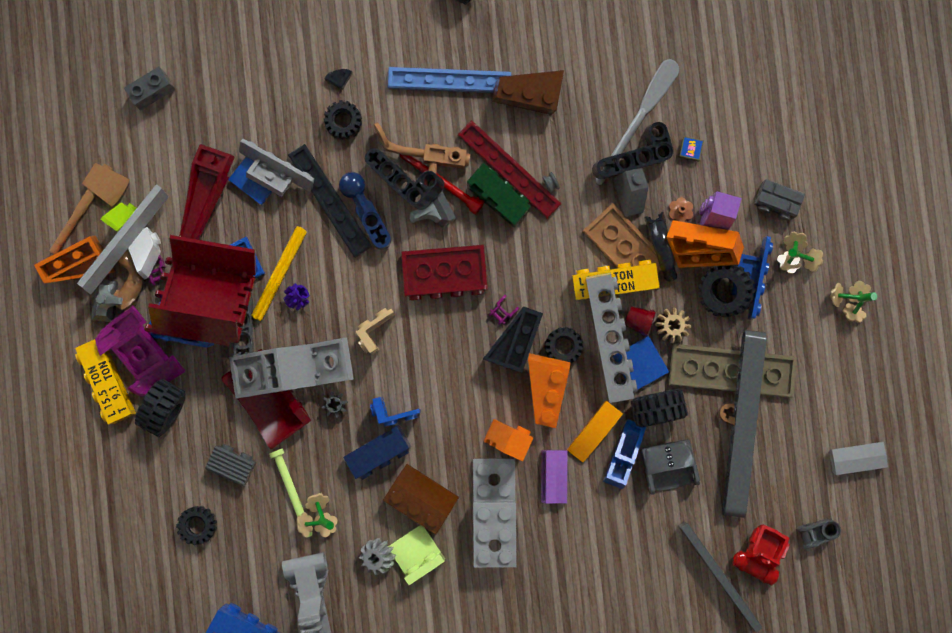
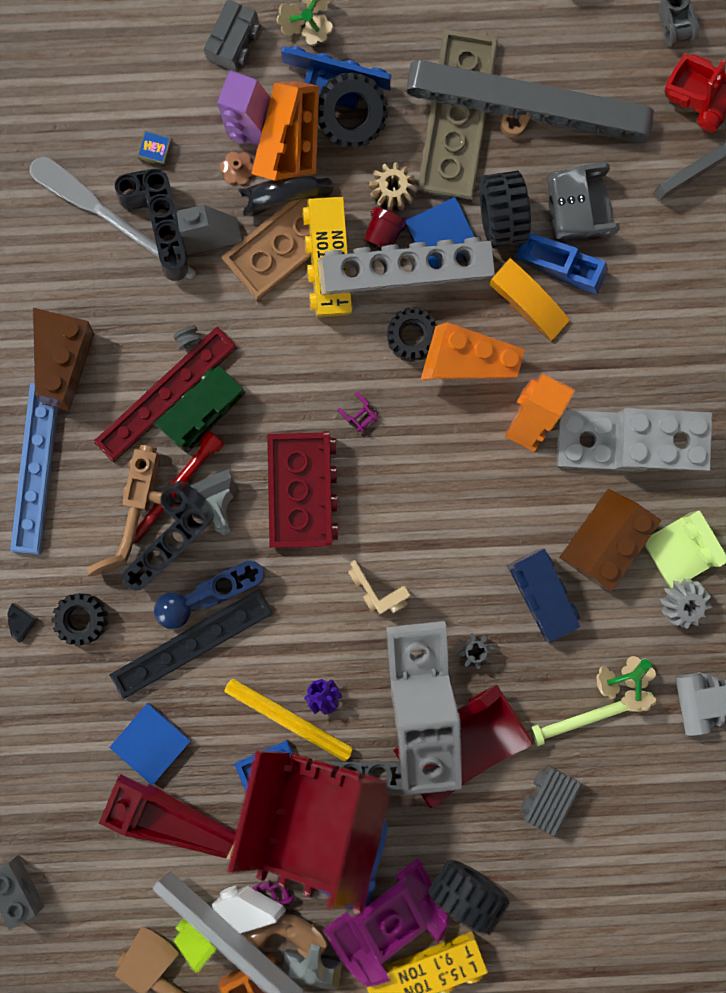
camera: 95 degrees left, 0 degrees up
(184, 529) = (640, 867): black tyre -> none
(272, 171) = (145, 721): light grey bracket -> none
(379, 409) = (502, 574): blue bracket -> none
(516, 341) = (402, 396): black wedge -> none
(554, 476) = (587, 358): medium lavender piece -> none

